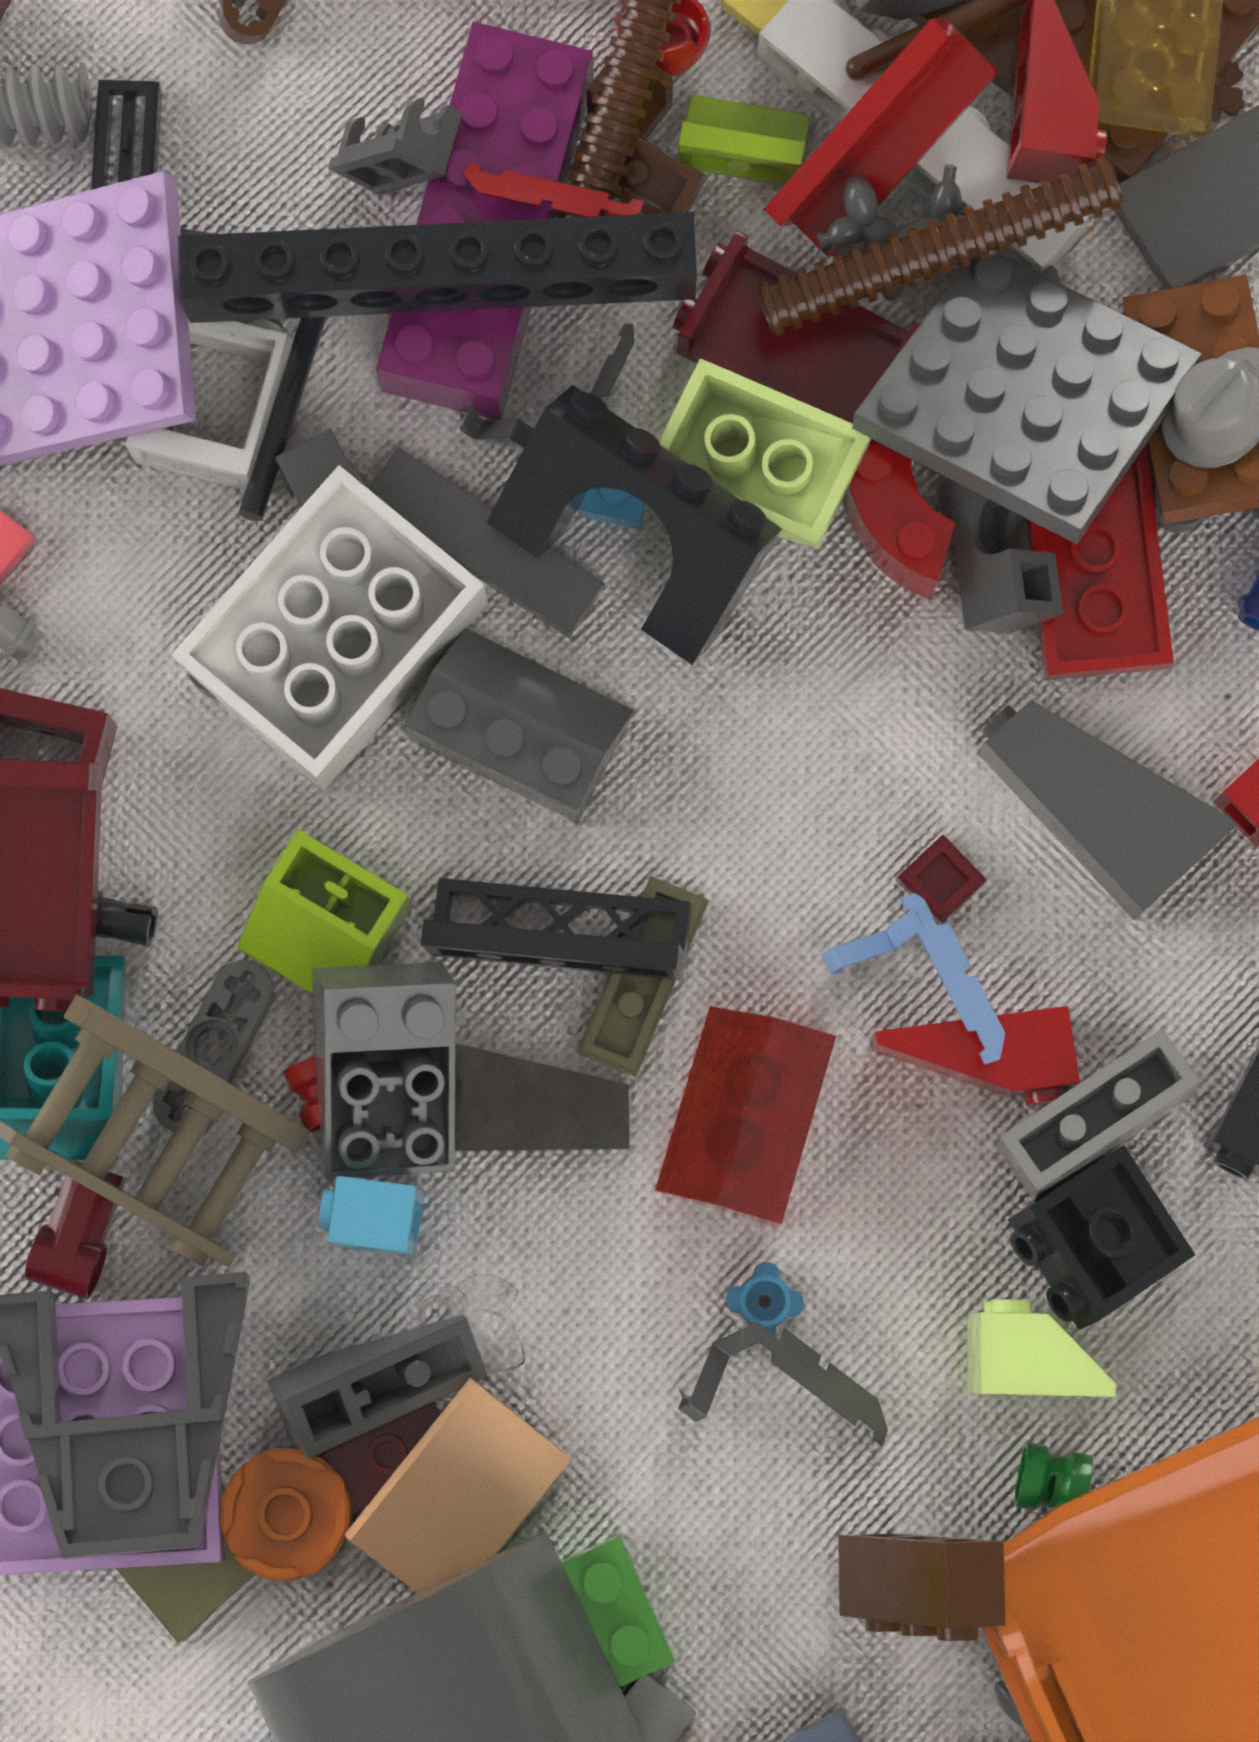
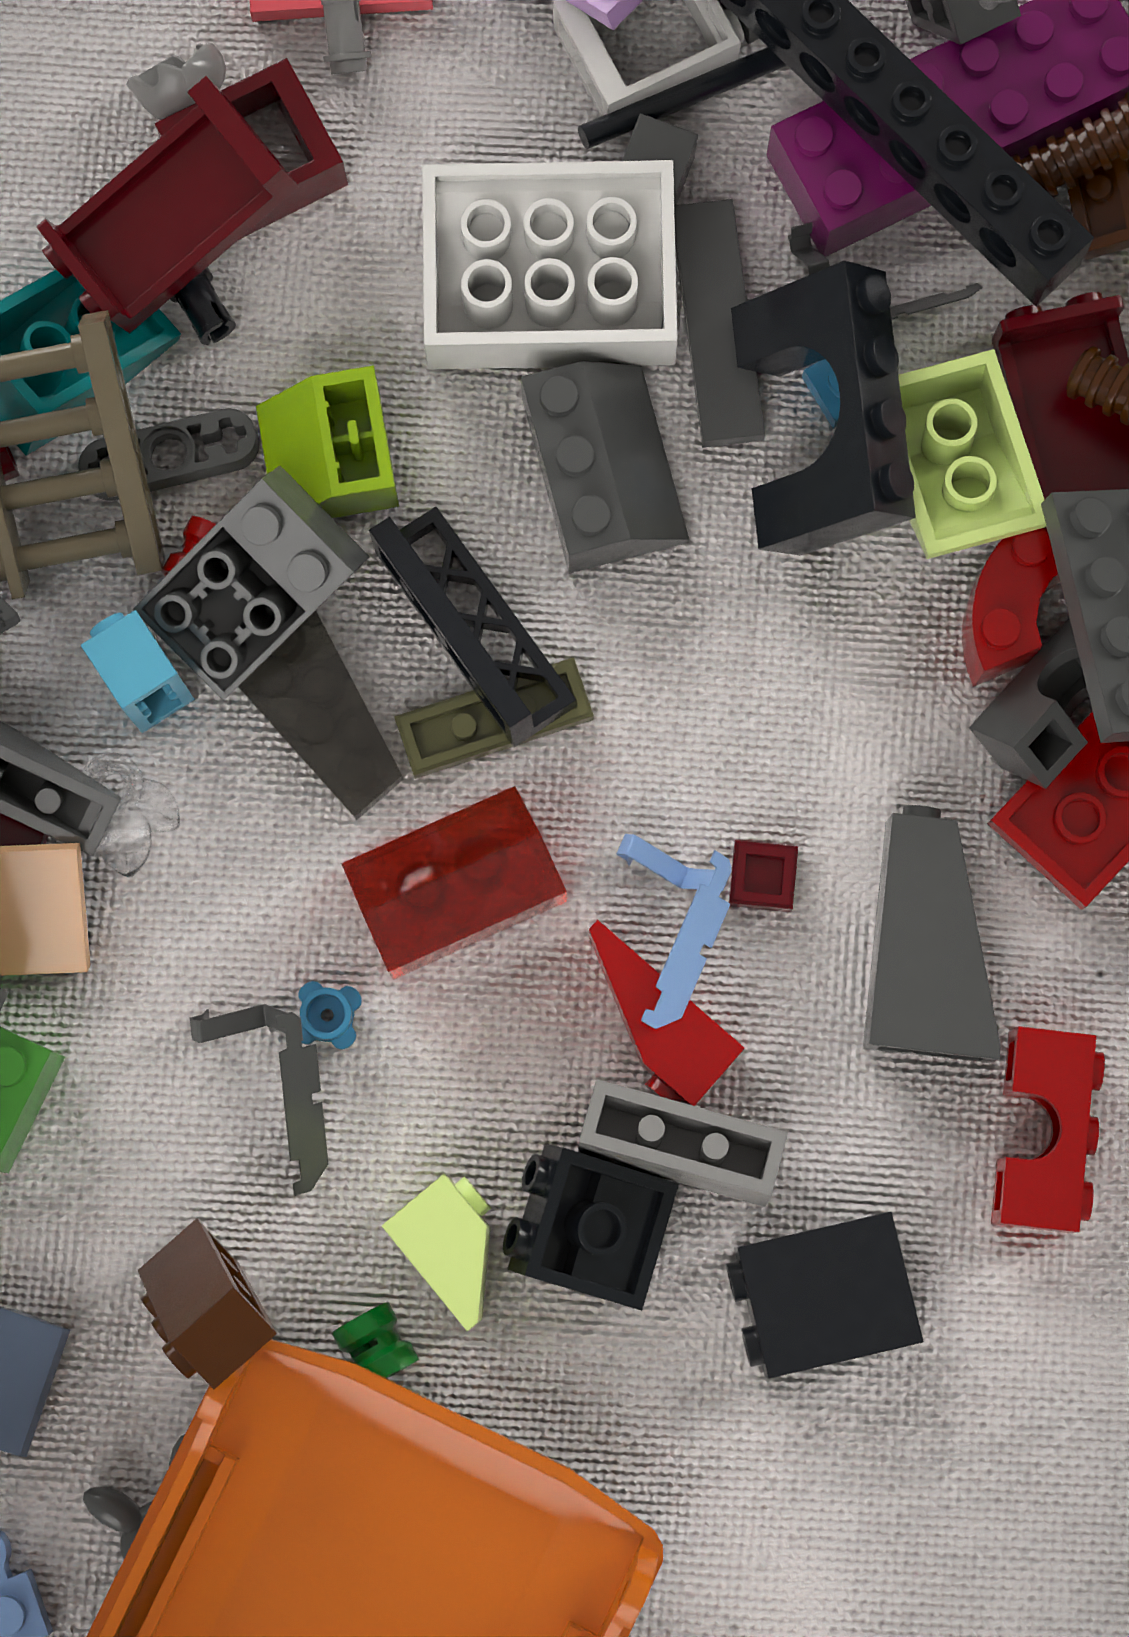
camera: 50 degrees right, 0 degrees up
(534, 190) = (1009, 116): red piece -> none

